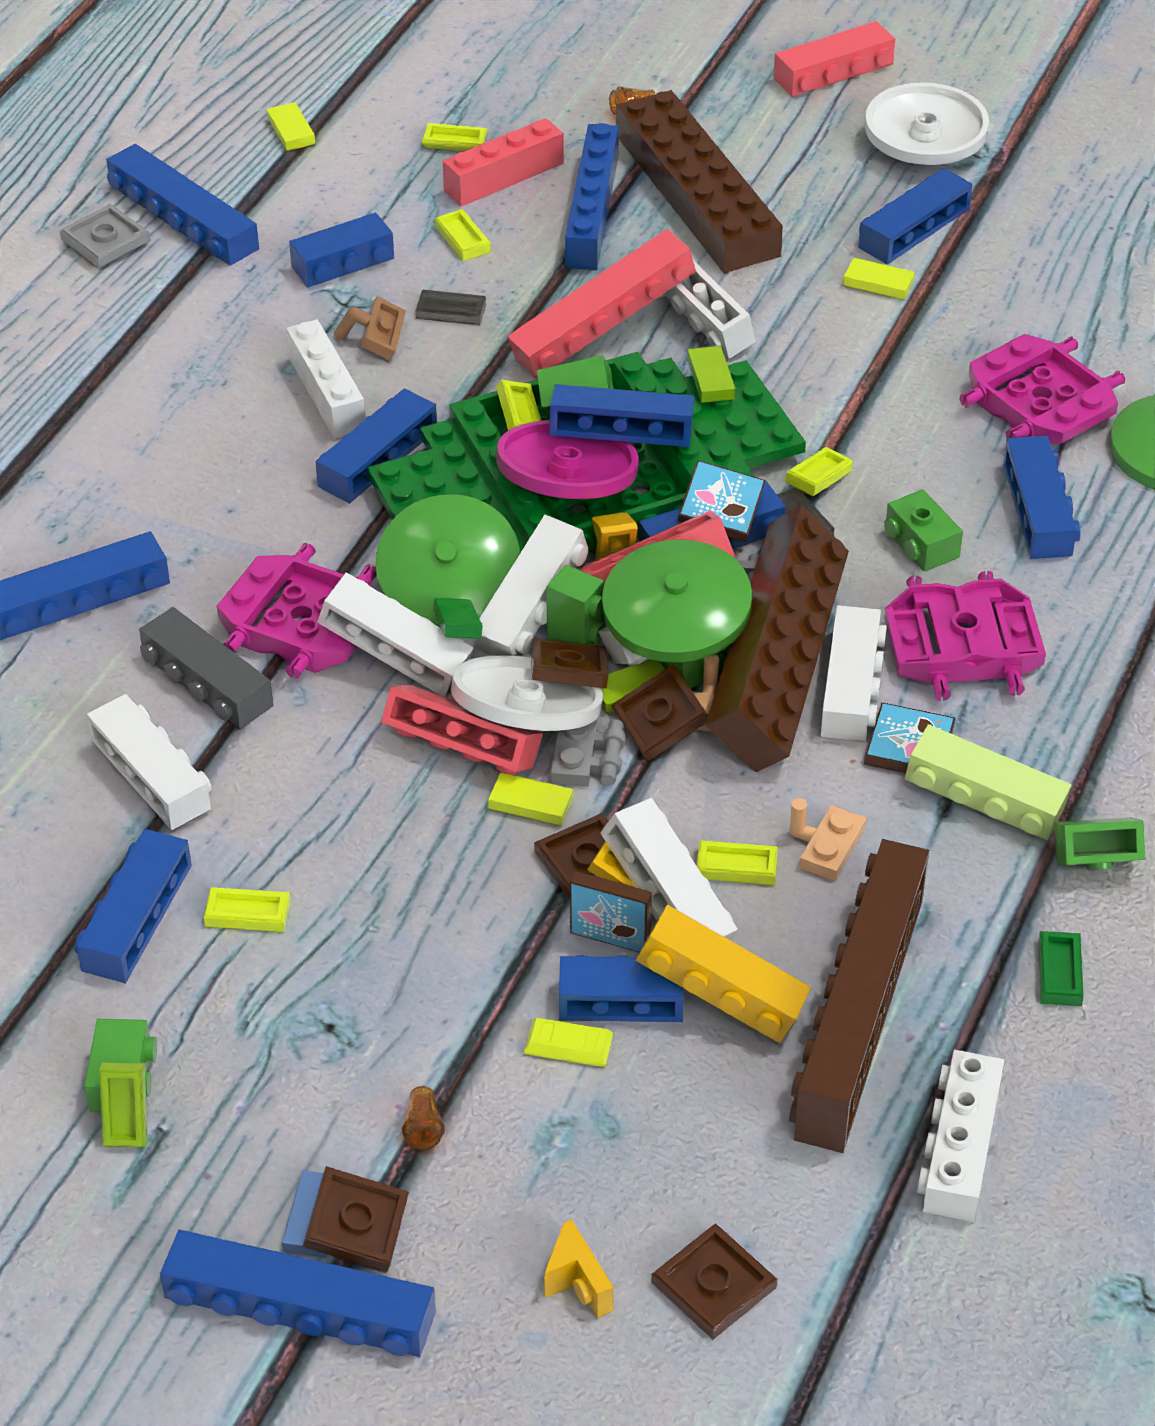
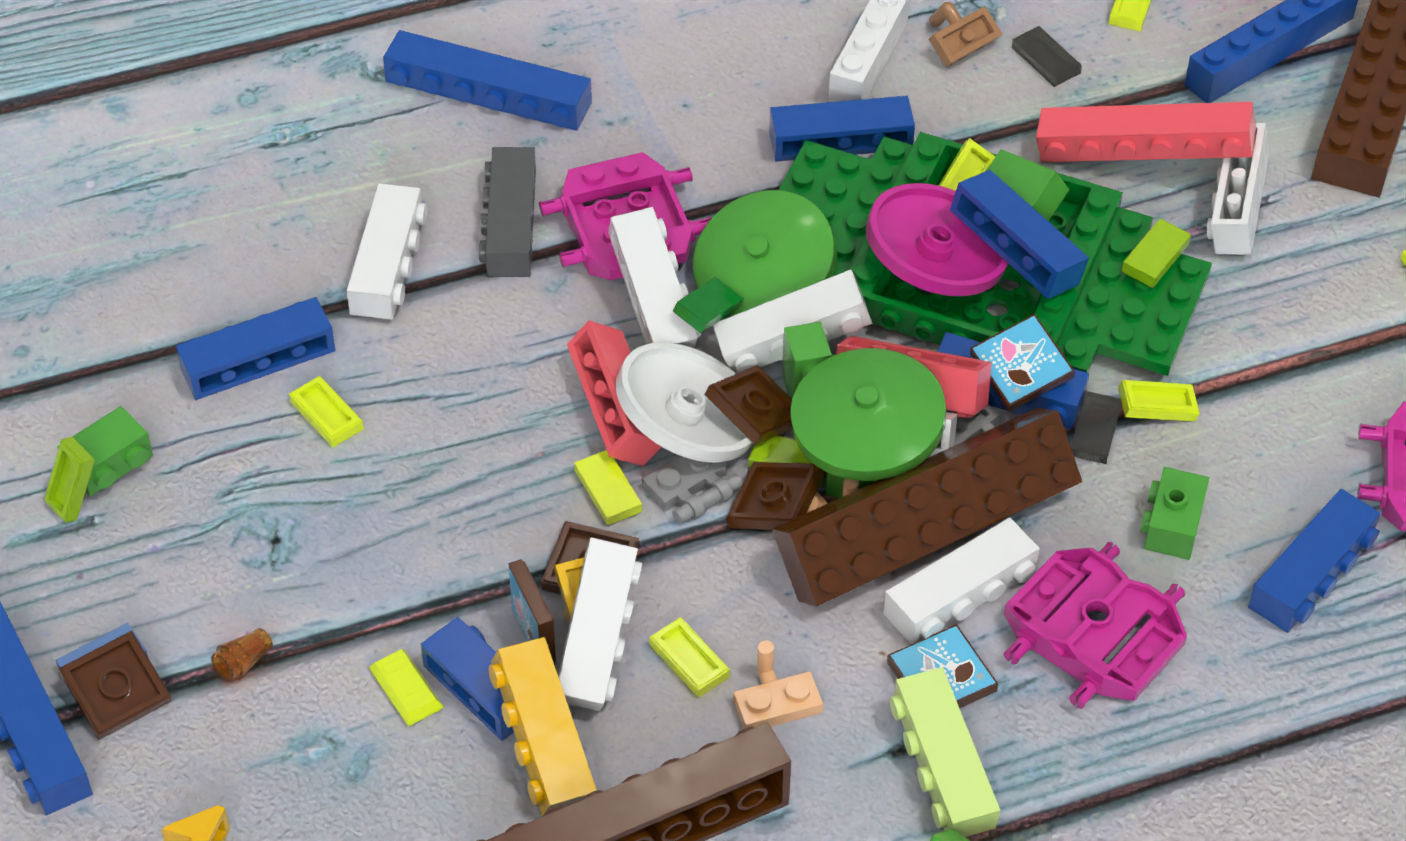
camera: 45 degrees right, 5 degrees up
(613, 533) = (907, 325): yellow slope -> none

